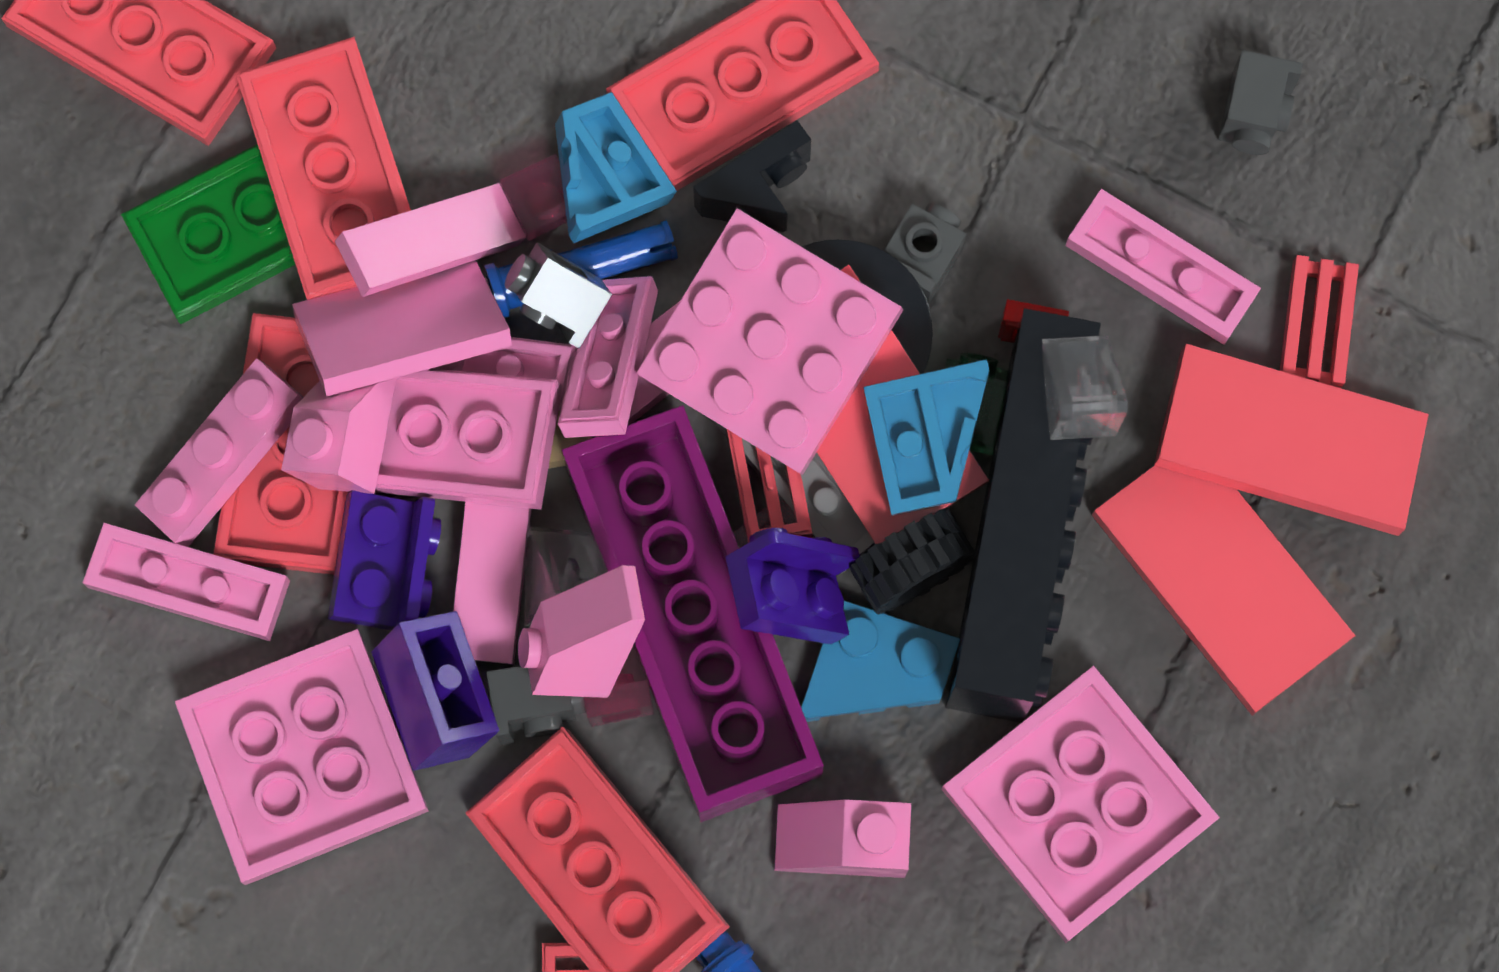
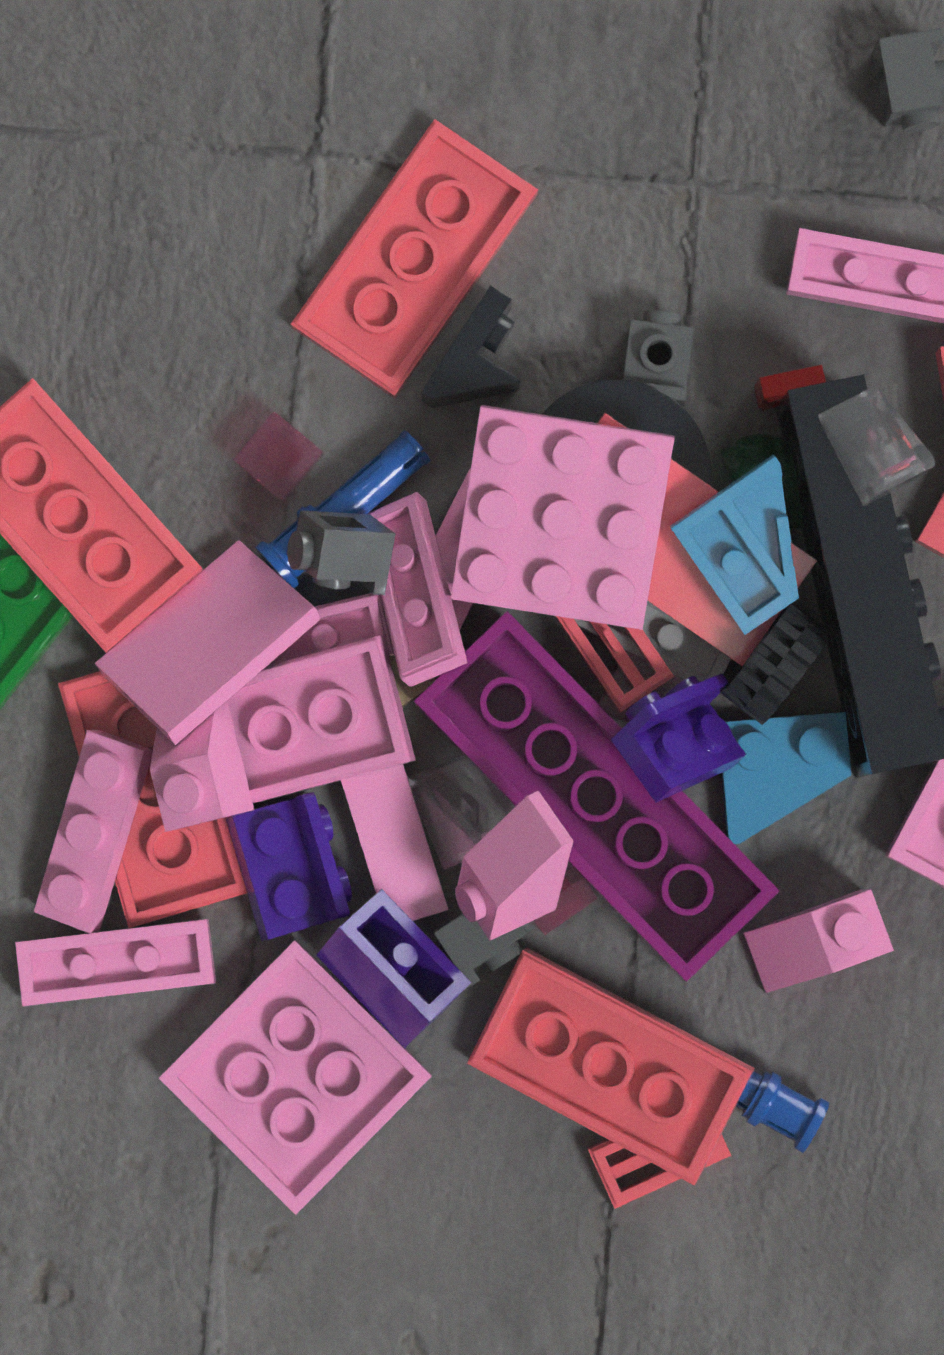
camera: 25 degrees left, 10 degrees up
(430, 239) = (197, 547): bright pink tile -> none
(606, 168) = (327, 405): dark azure wing -> none

